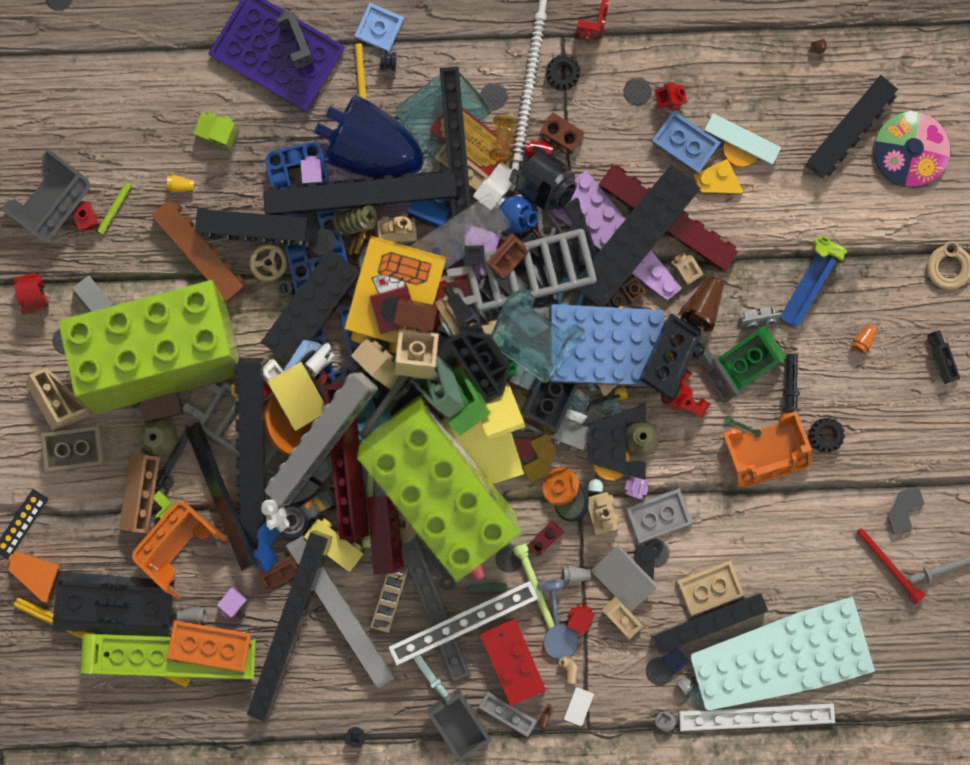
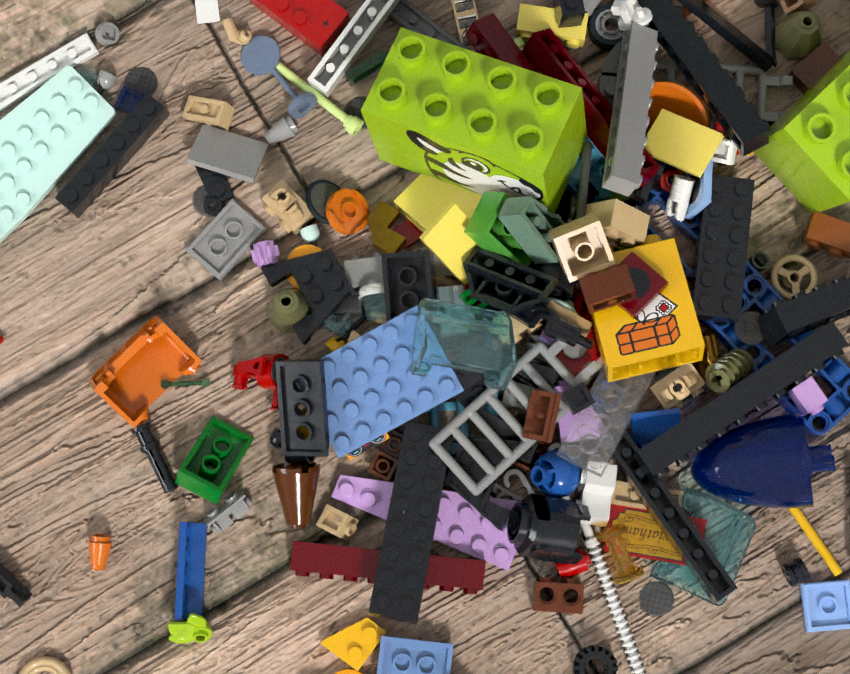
camera: 155 degrees right, 5 degrees down
(318, 504) = (593, 53): dark grey leg -> none
(545, 538) = (333, 152): dark red leg -> none
(580, 618) = (252, 87): red brick -> none
(710, 588) = (131, 194): tan tile -> none
(718, 377) = (239, 420): dark grey hinge -> none
(826, 423) = (78, 412): black tyre -> none

